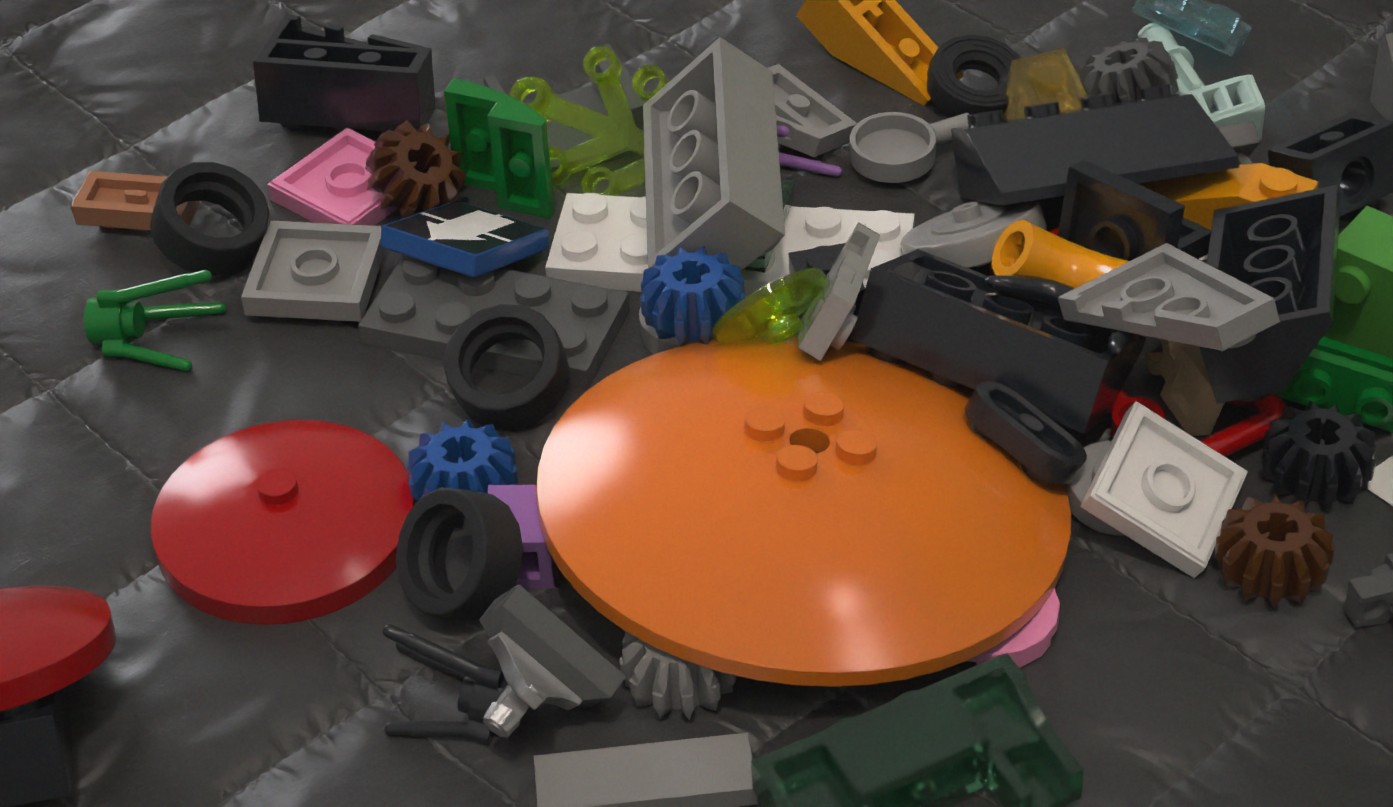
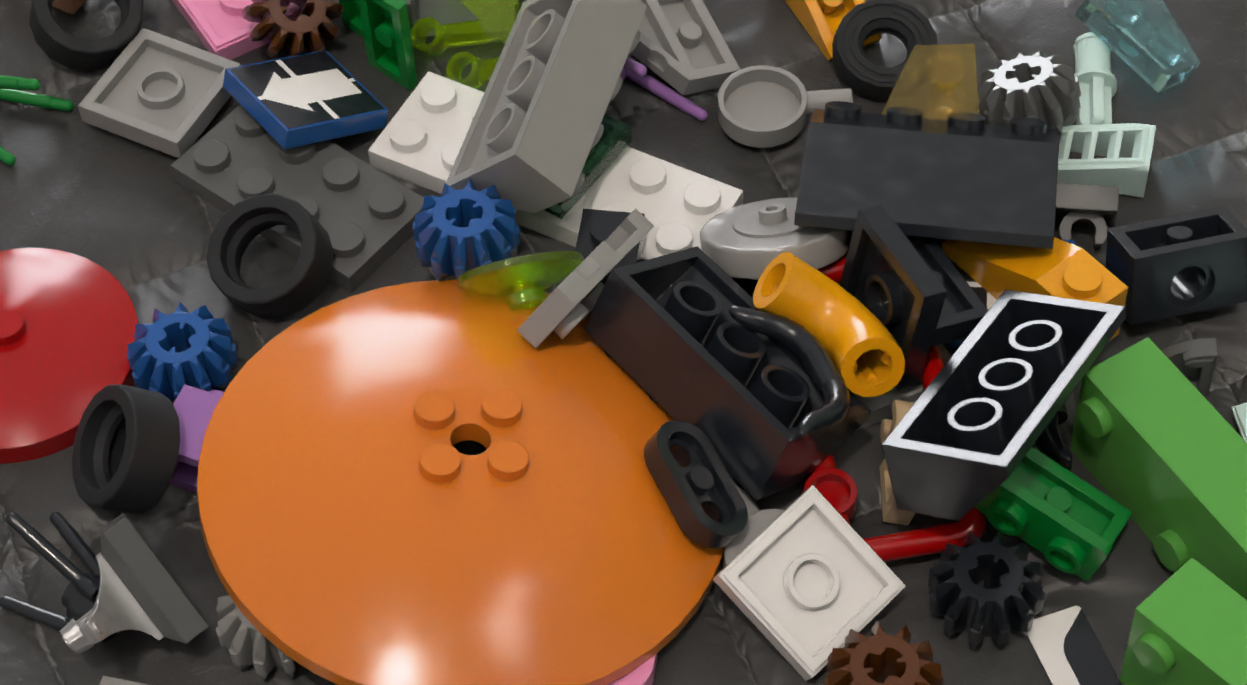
camera: 20 degrees right, 10 degrees up
(1174, 300) = (875, 398): light grey wing -> none

